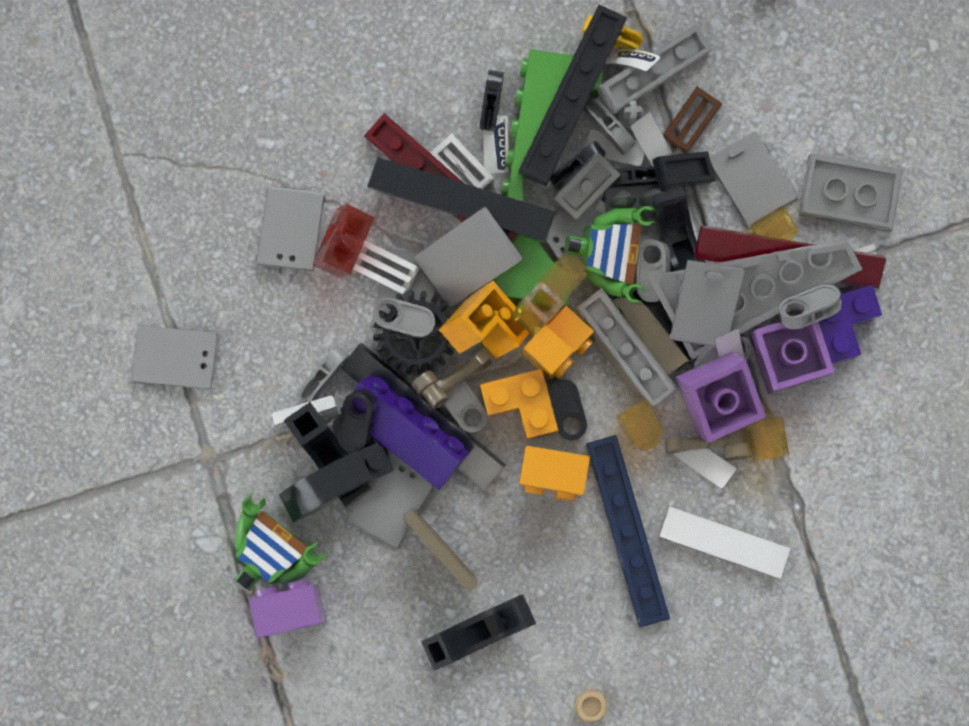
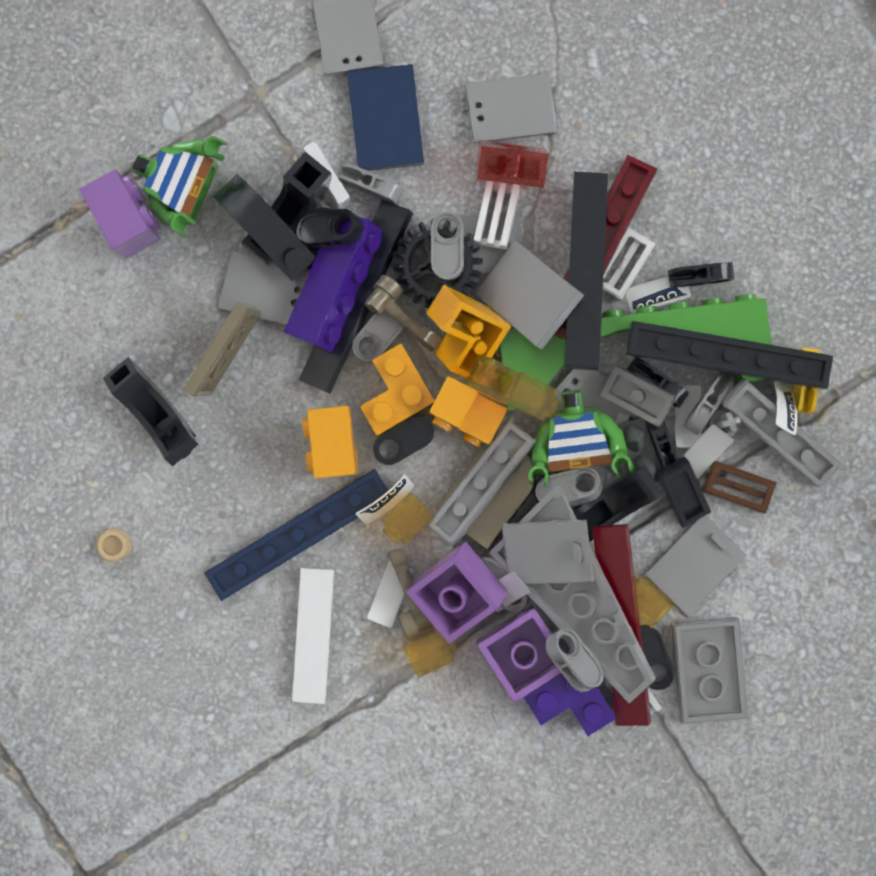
camera: 75 degrees right, 5 degrees up
(266, 344) = (385, 117): none -> dark blue tile
(619, 440) = (387, 501): none -> white sticker
(824, 233) = (656, 653): none -> black piece

